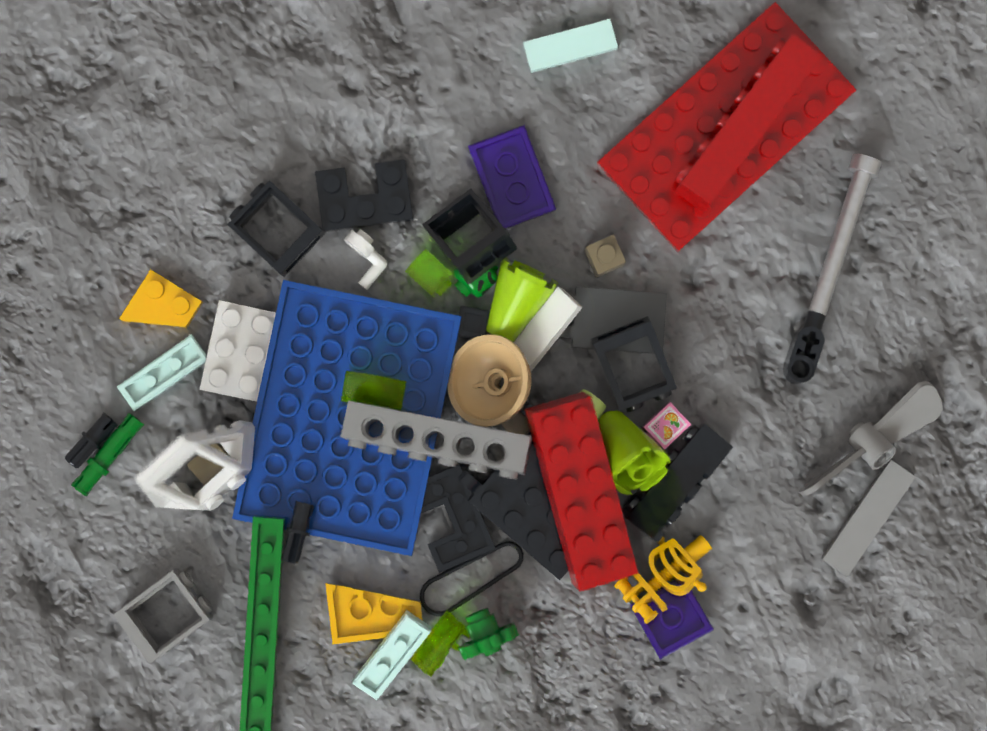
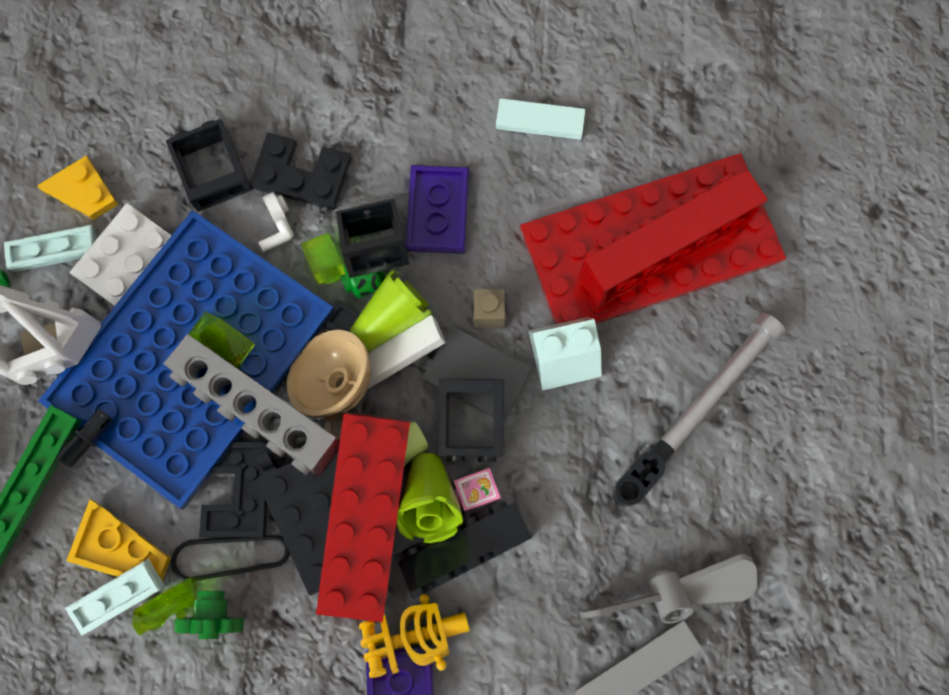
camera: 30 degrees right, 10 degrees down
(692, 266) = (566, 352): none -> light aqua slope

